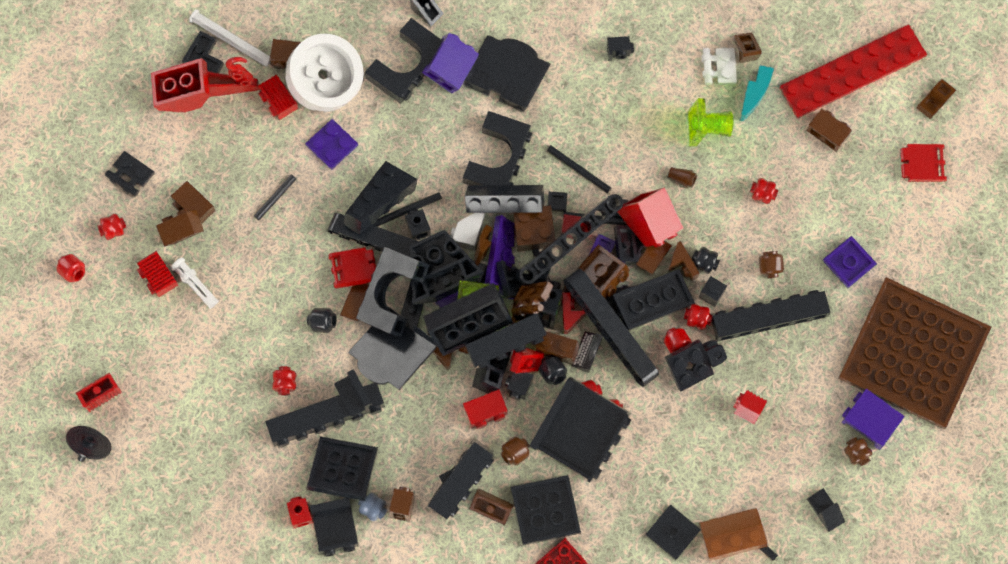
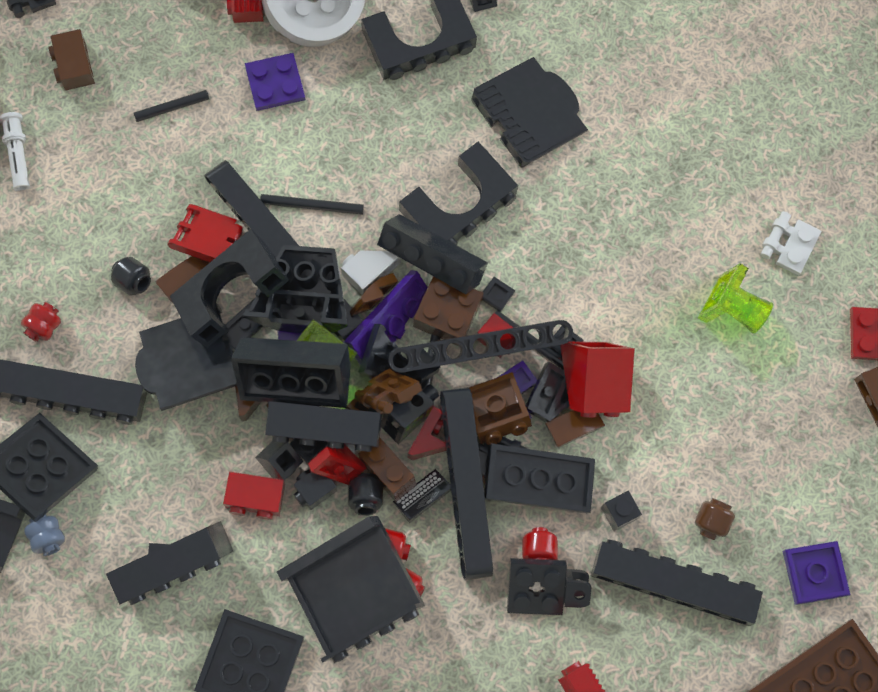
camera: 25 degrees right, 0 degrees up
(180, 227) = (36, 76): reddish brown brick -> none
(353, 394) = (105, 384): black panel -> none
(383, 191) = (285, 168): black wedge -> none
(402, 504) = (77, 552): reddish brown brick -> none
(417, 224) = (312, 227): black brick -> none
(451, 63) = (468, 62): dark purple panel -> none
(491, 506) = (188, 619): reddish brown slope -> none
(515, 451) = (257, 567): reddish brown head -> none
(579, 169) = (546, 270): black piece -> none
(619, 47) = (681, 154): black brick -> none
(682, 258) = (605, 446): reddish brown slope -> none
(683, 176) = (667, 349): reddish brown cone -> none
(698, 316) = (584, 531): red piece -> none
(705, 260) = (635, 466): black piece -> none
(748, 47) = (838, 239): reddish brown slope -> none
(756, 91) = (819, 297): teal slope -> none
(764, 191) = (758, 423): red piece -> none

